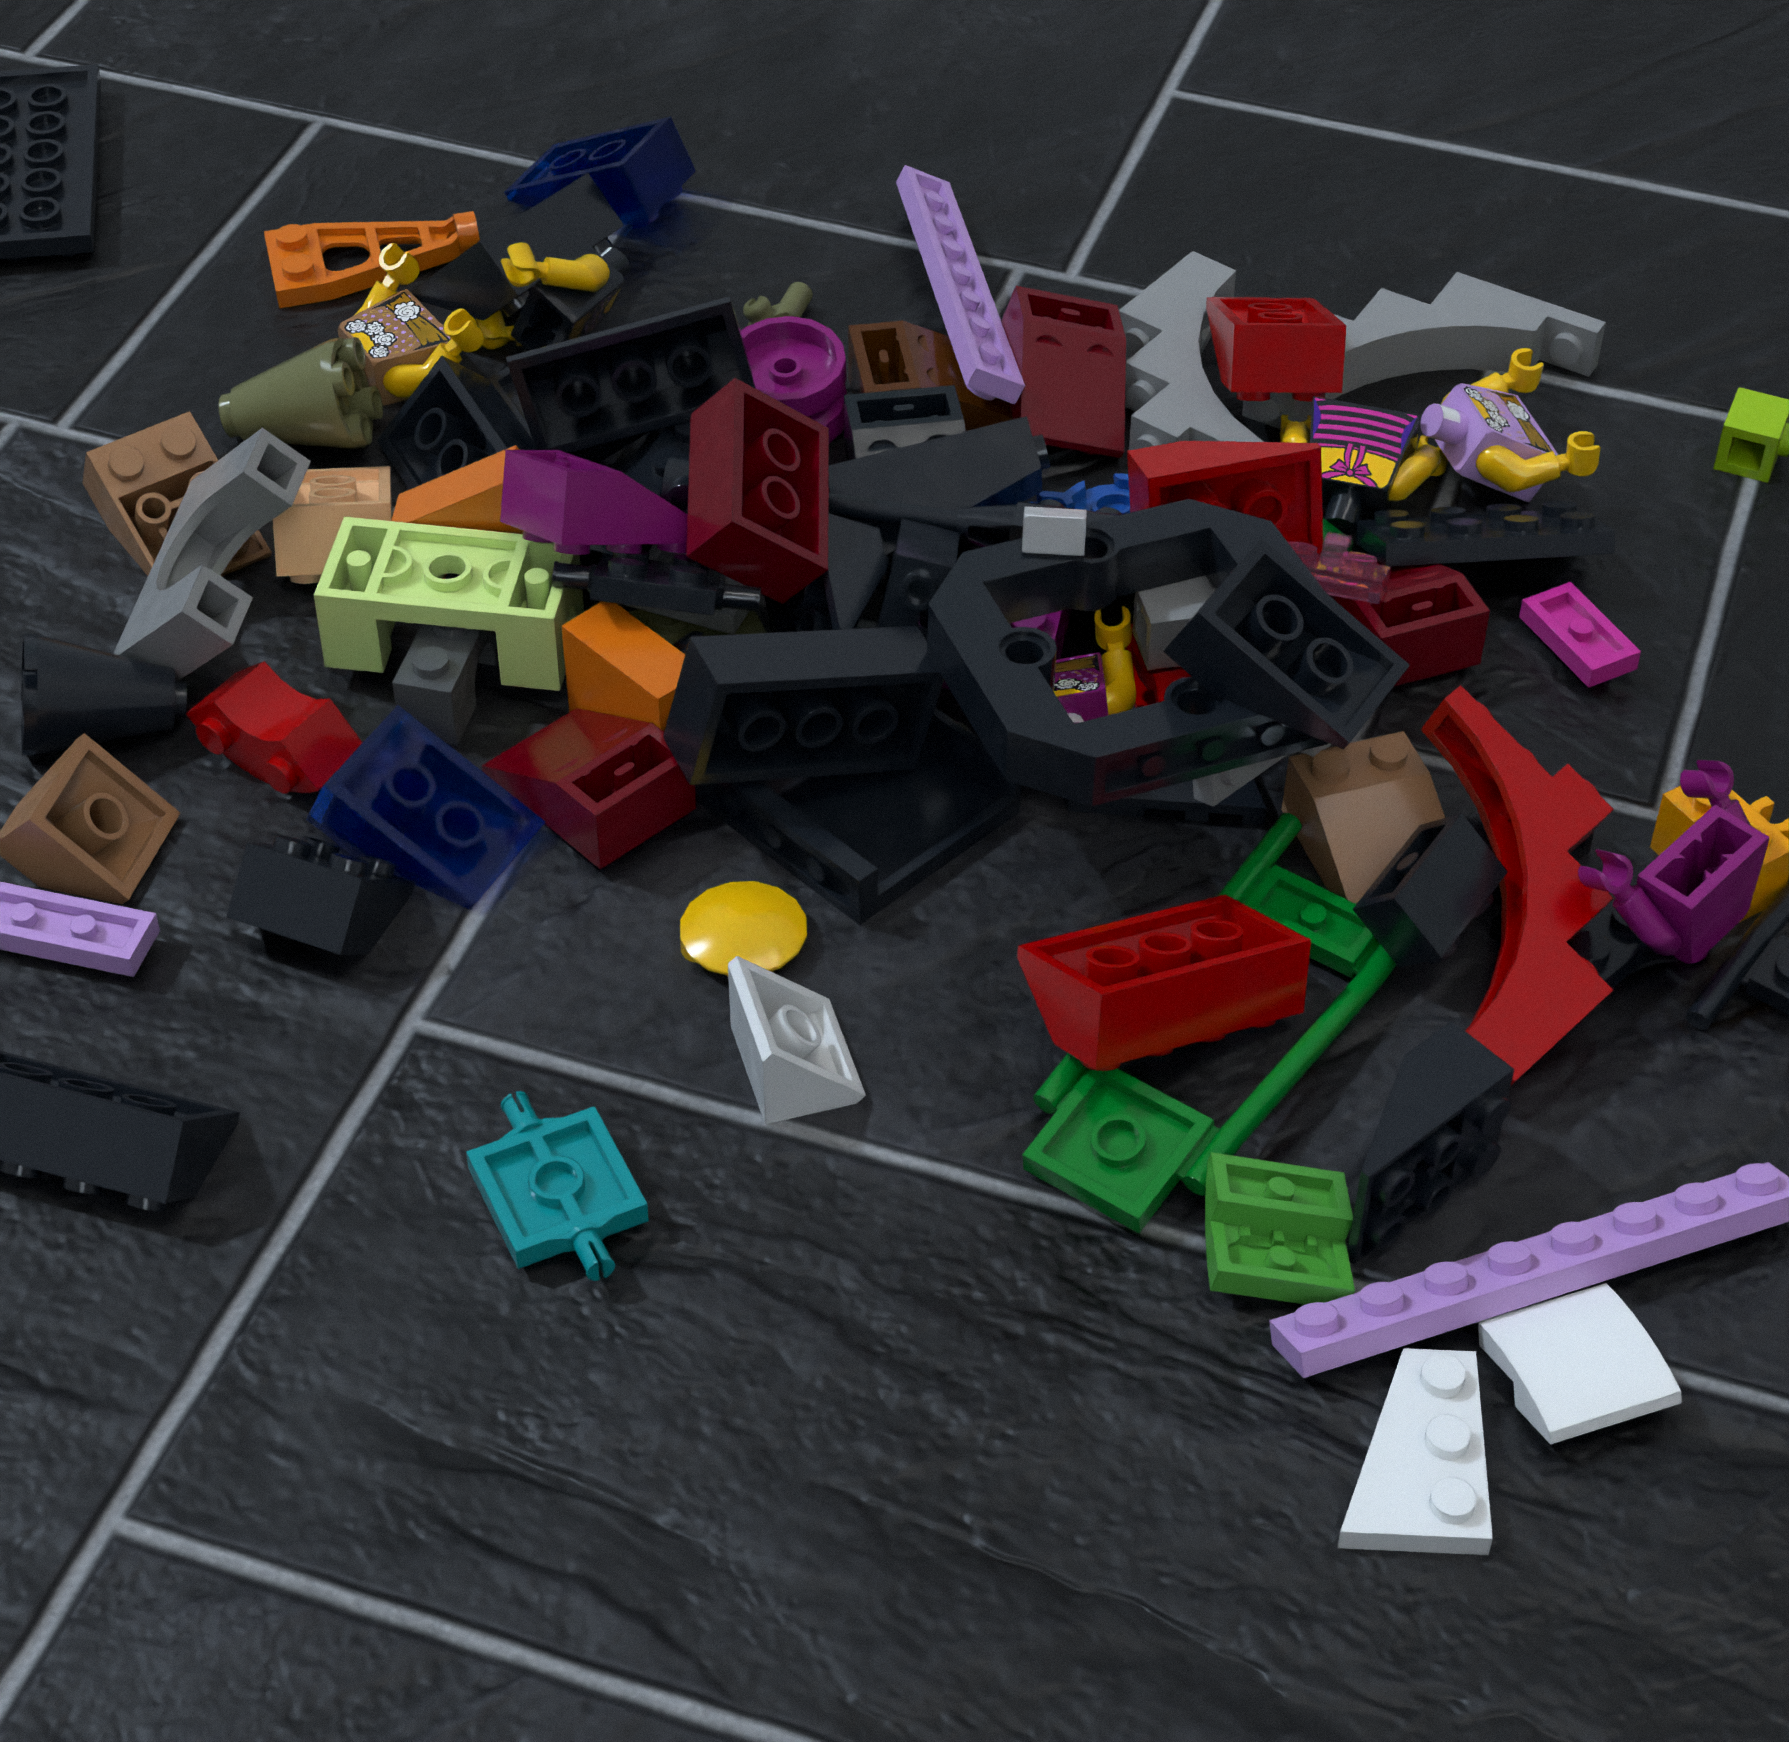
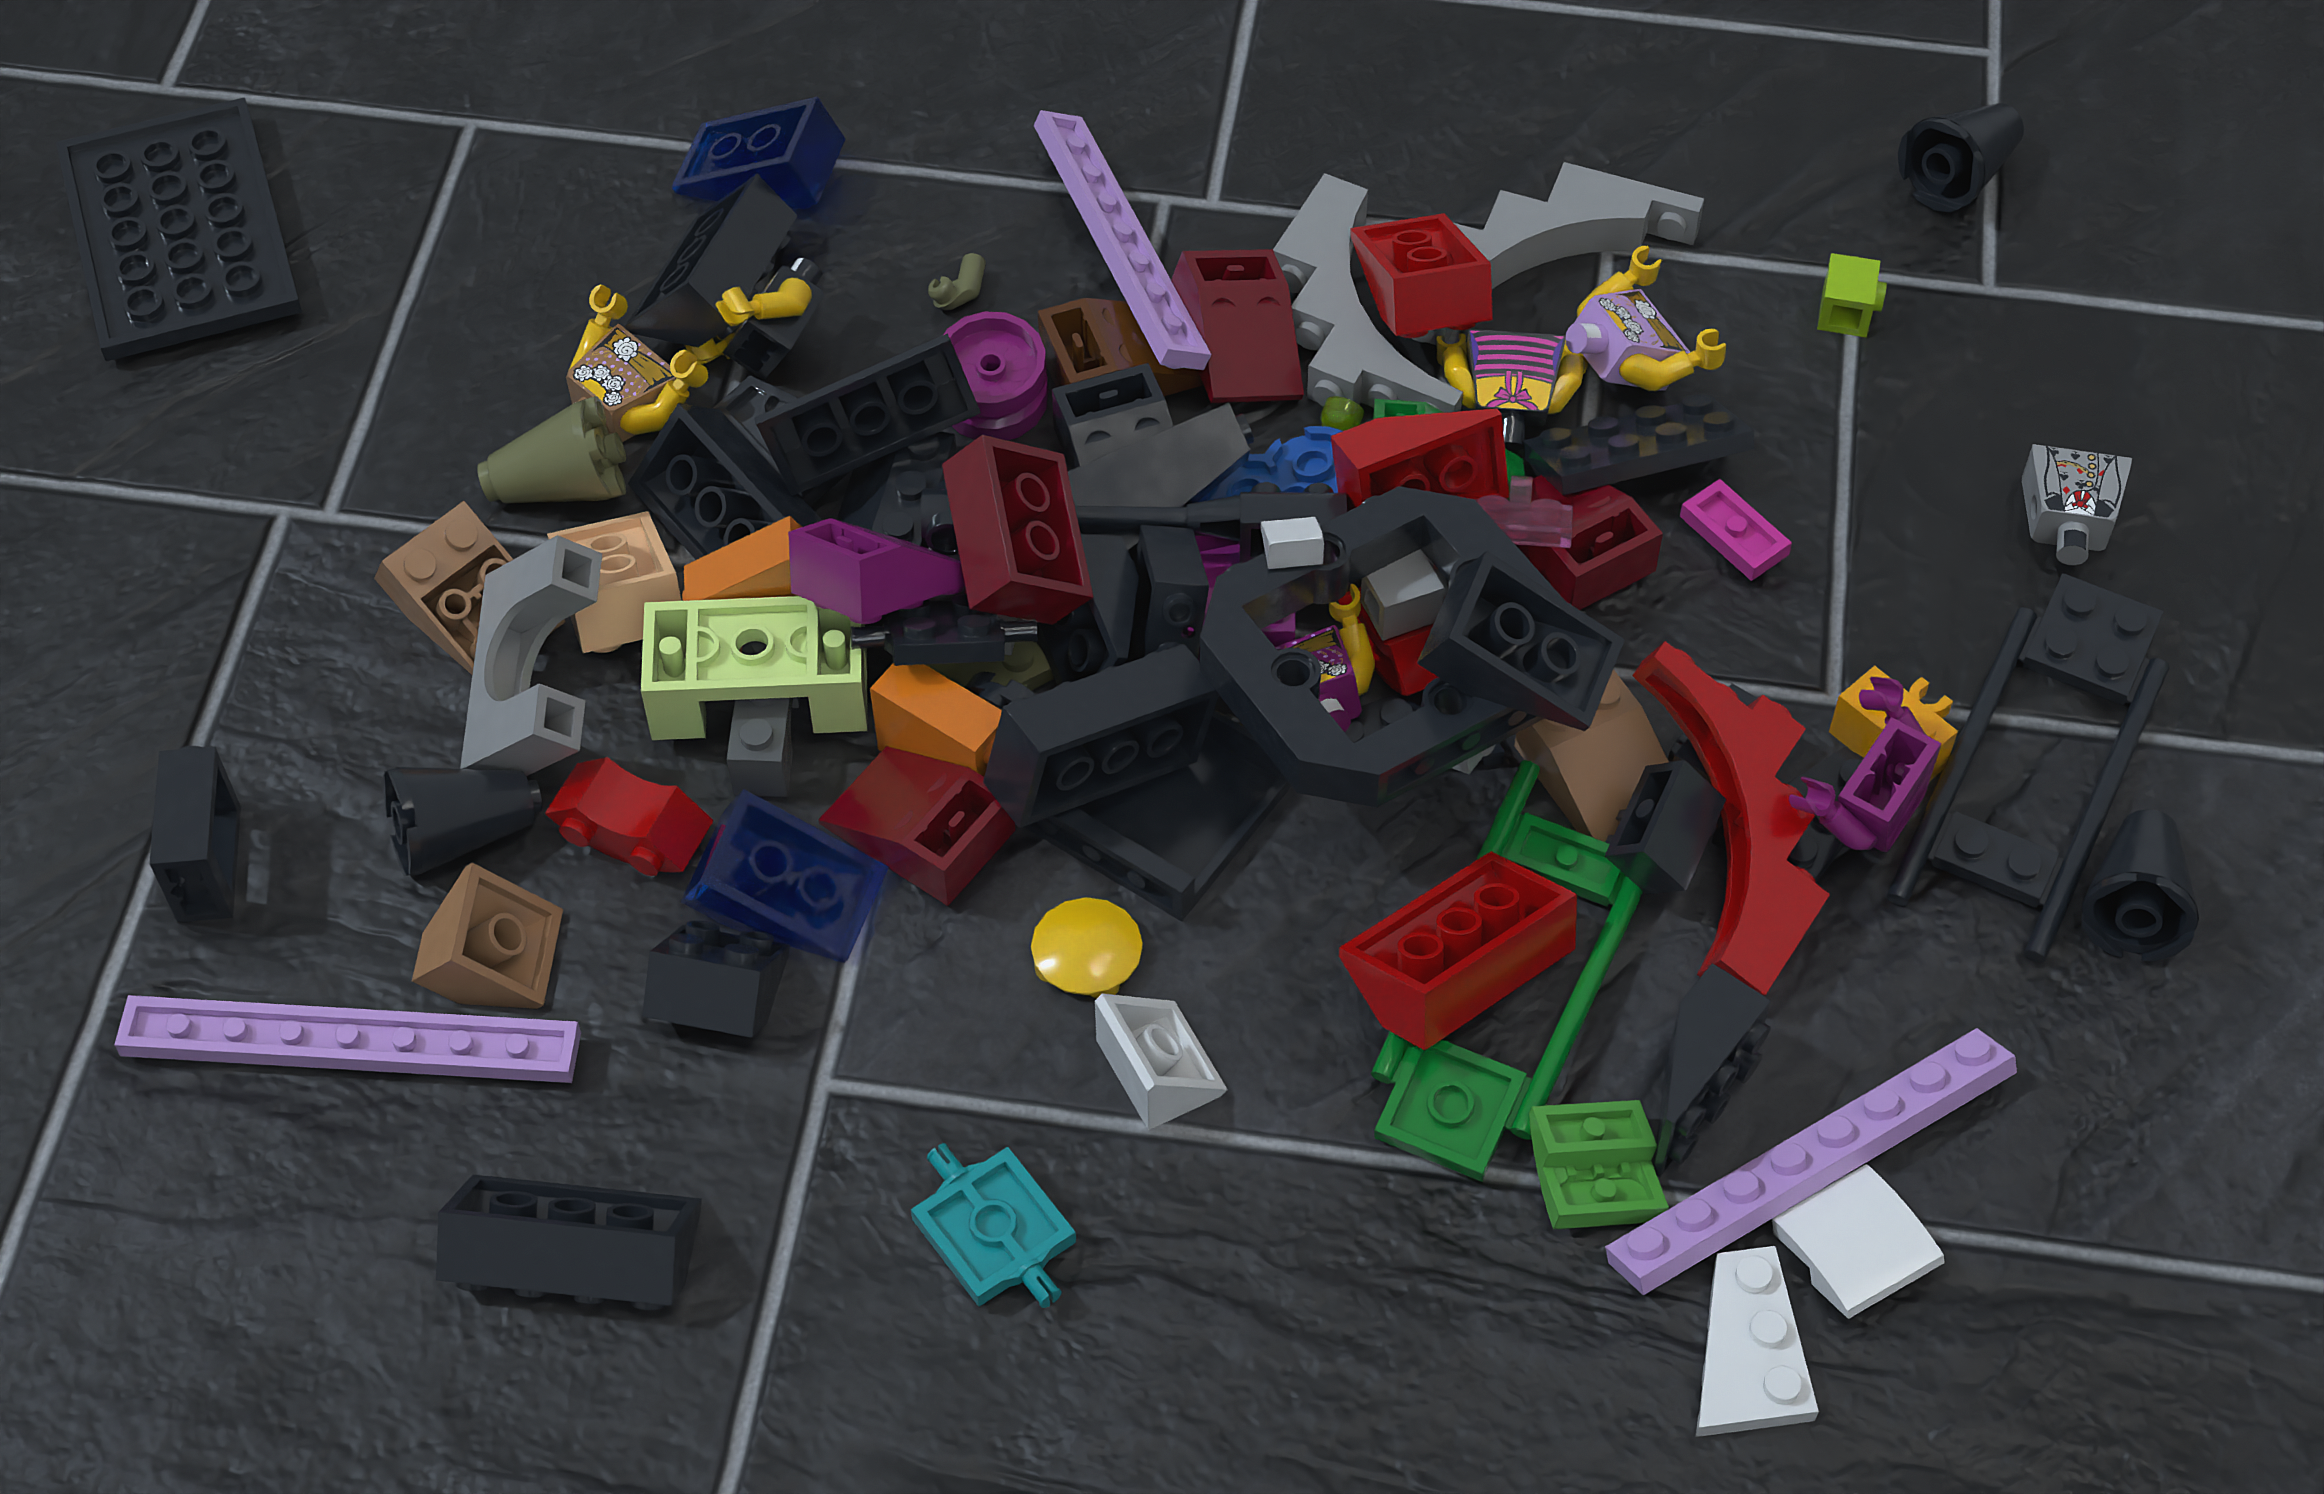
camera: 10 degrees left, 10 degrees up
(298, 250) = (503, 303): orange plate -> none

